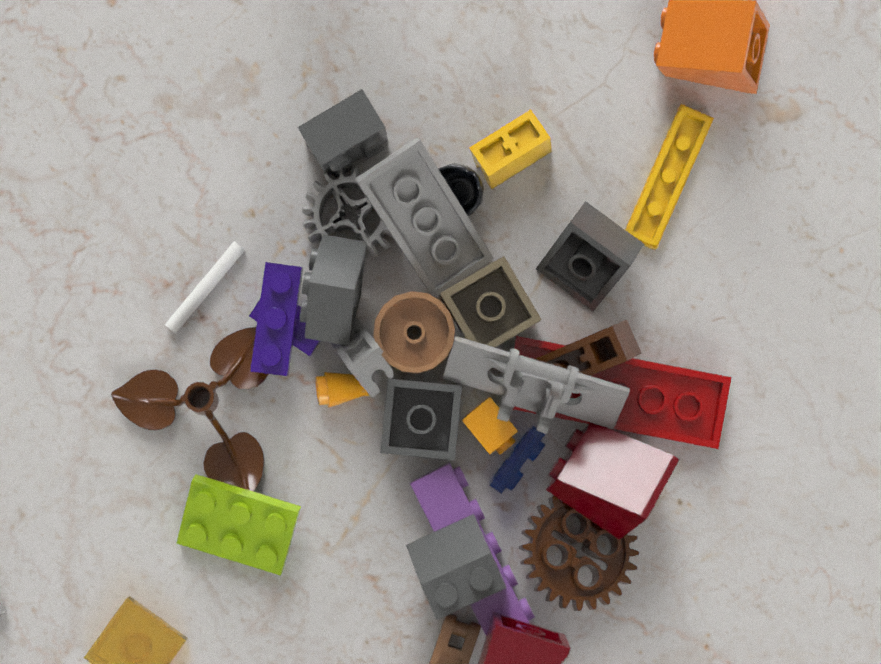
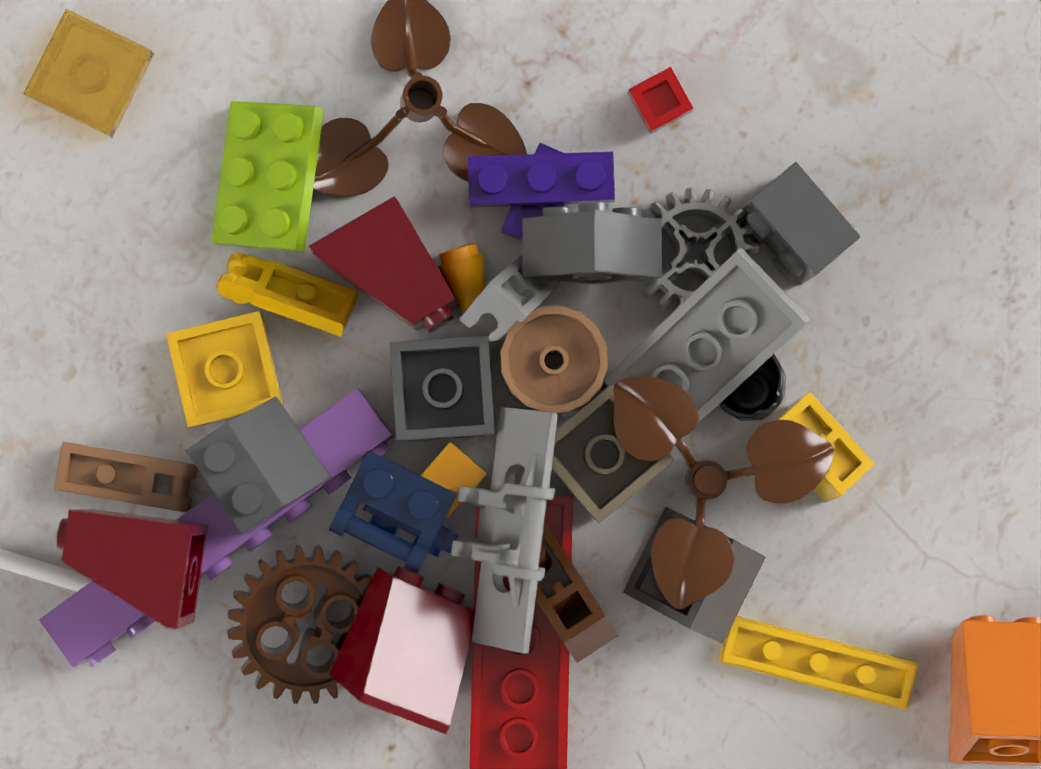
camera: 80 degrees right, 0 degrees up
(204, 287) = (567, 80): white bar -> none
(232, 220) = (660, 100): none -> red plate
(322, 442) = (389, 265): none -> dark red slope
(328, 523) = (288, 292): none -> yellow hinge
(377, 581) = (223, 368): none -> yellow plate
(495, 465) = (401, 496): none -> dark blue plate
(515, 174) = (783, 455): none -> reddish brown plant

